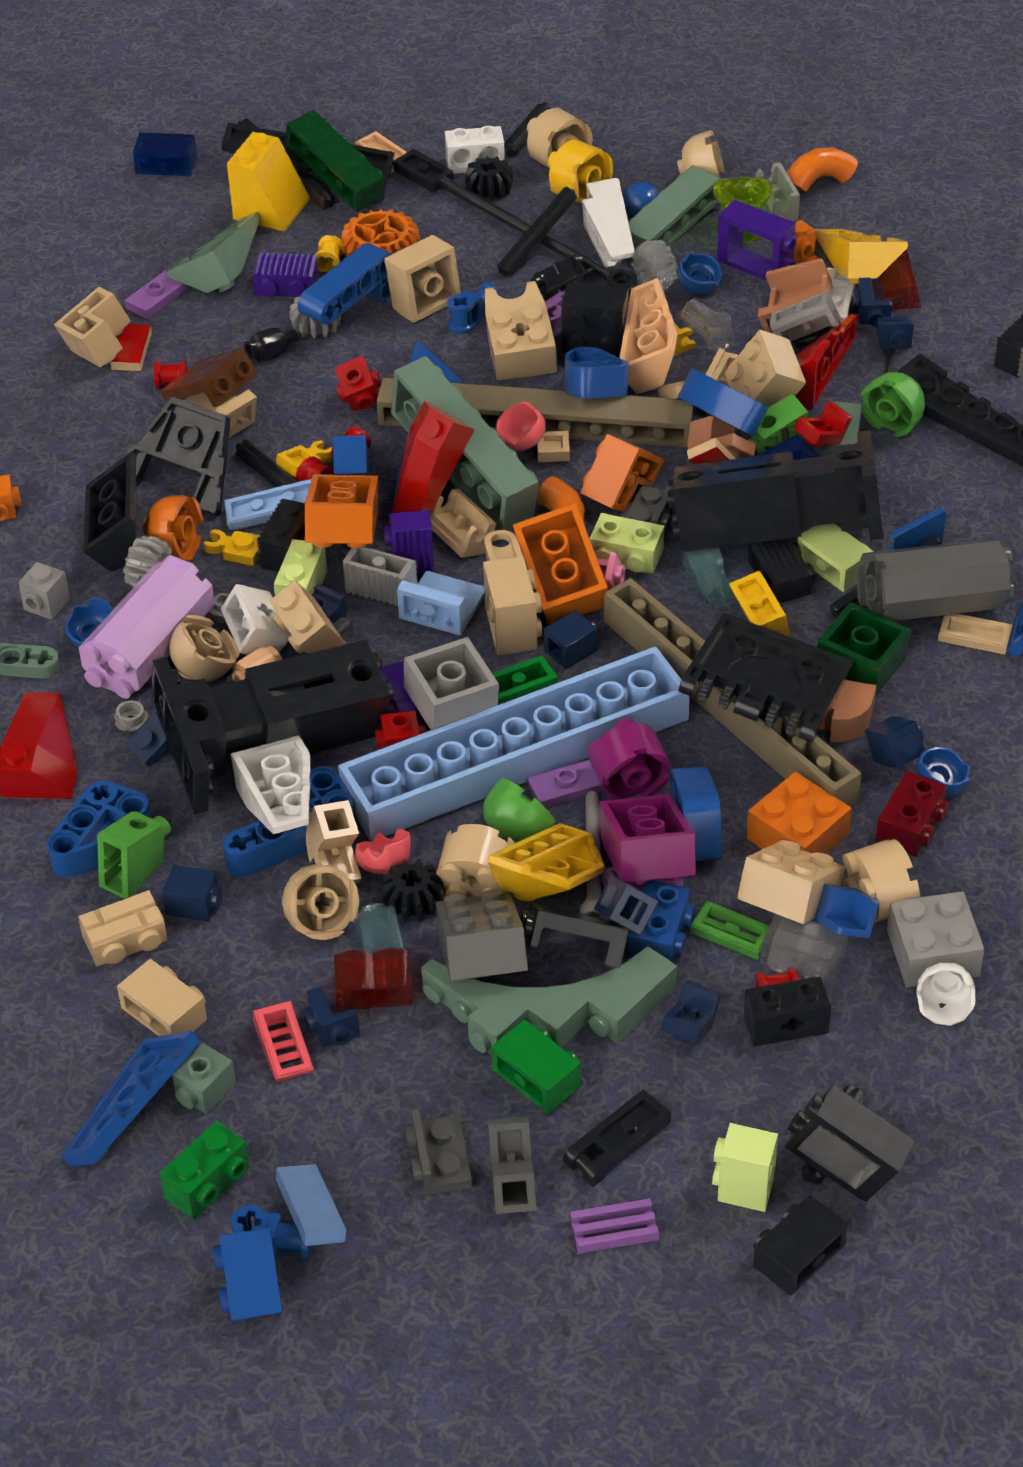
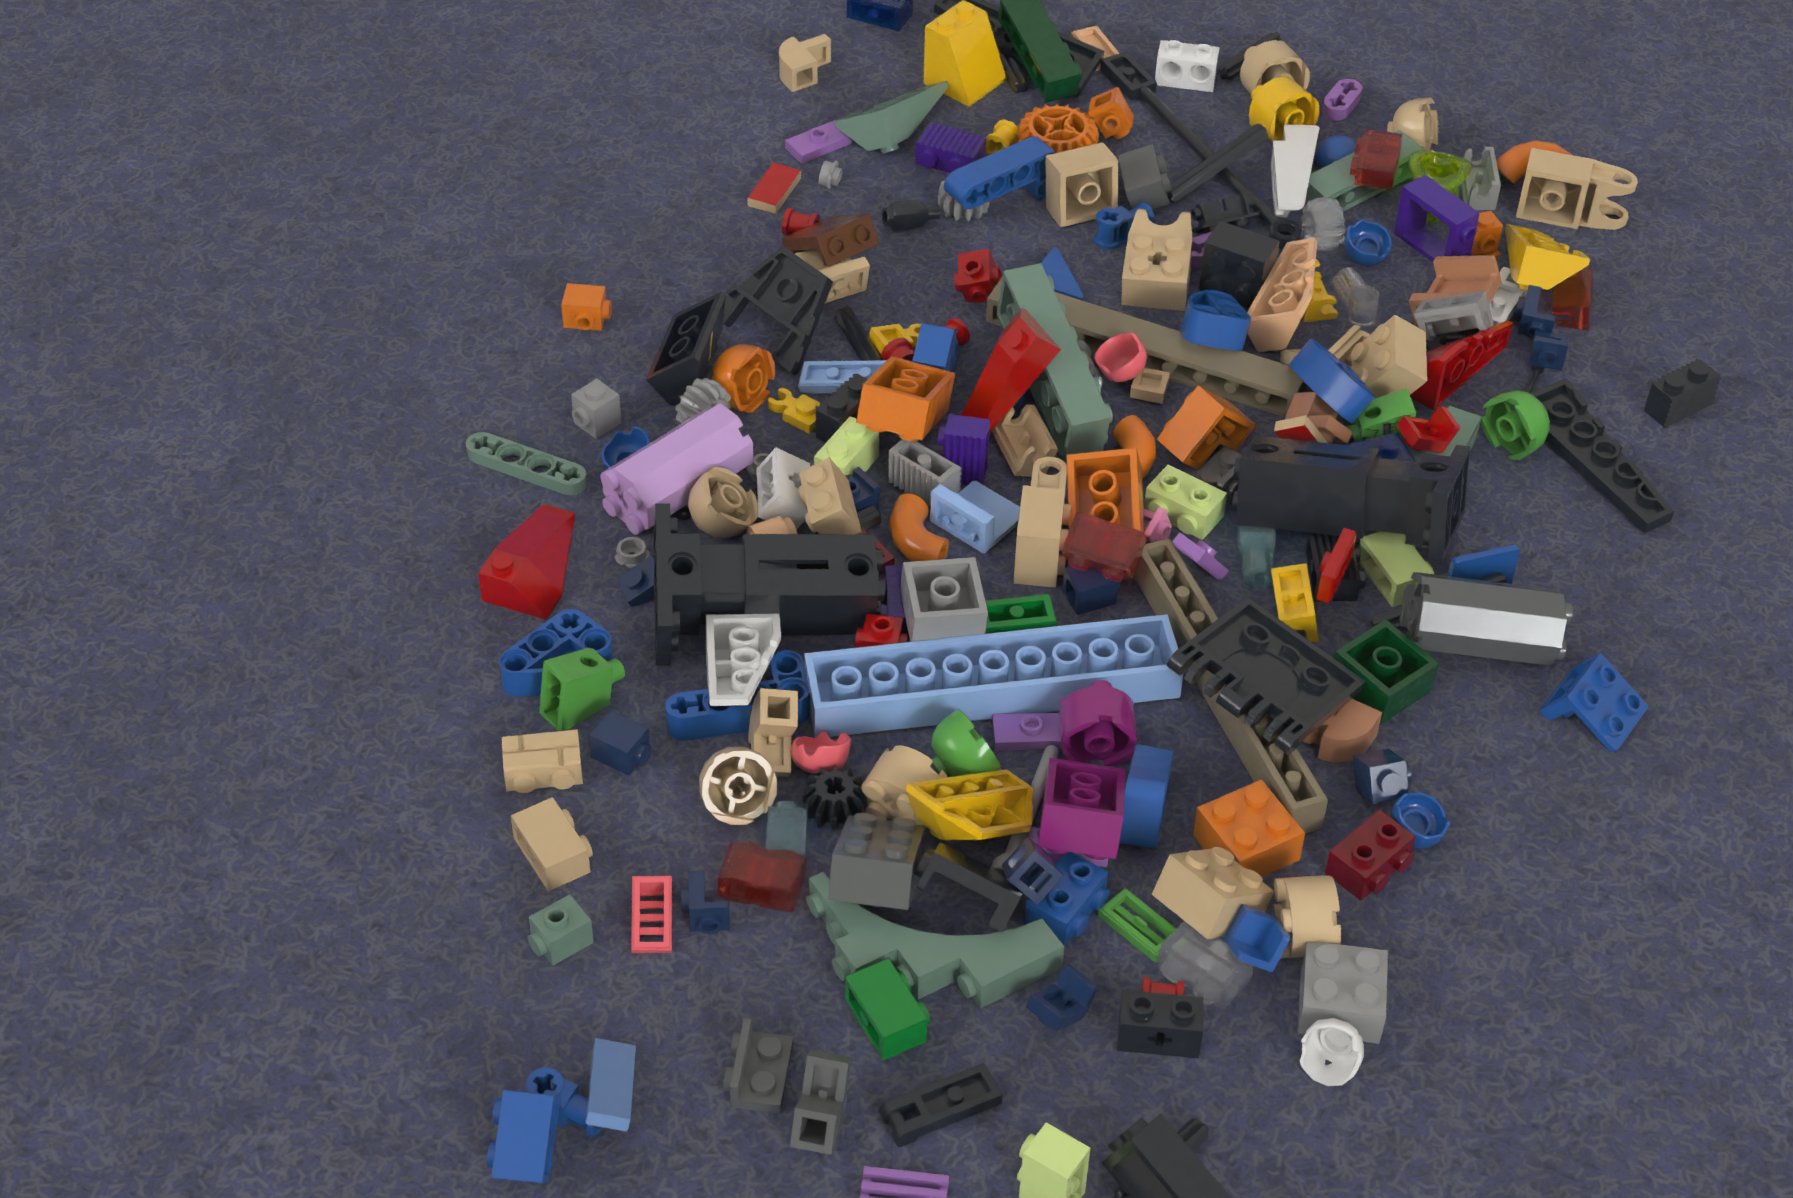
camera: 15 degrees right, 0 degrees up
(93, 327) = (741, 158): tan brick -> none
(111, 223) = (801, 61): none -> tan brick
(131, 1090) = (490, 920): blue wing -> none
(180, 322) = (830, 174): none -> light grey plate
(204, 1170) = (525, 1020): green brick -> none
(387, 634) = (909, 531): none -> orange cylinder
(424, 208) = (1114, 107): none -> orange brick
(477, 260) = (1145, 177): none -> dark grey brick
(489, 177) = (1191, 97): black gear -> none
(576, 599) = (1103, 546): none -> clear red brick
(629, 151) = (1344, 94): none -> medium lavender beam
(662, 587) = (1201, 555): none -> medium lavender plate
(684, 195) = (1377, 158): none -> clear red brick
(787, 565) = (1335, 564): none -> red plate
(864, 186) = (1573, 191): none -> tan brick
(975, 633) = (1513, 684): tan tile -> none

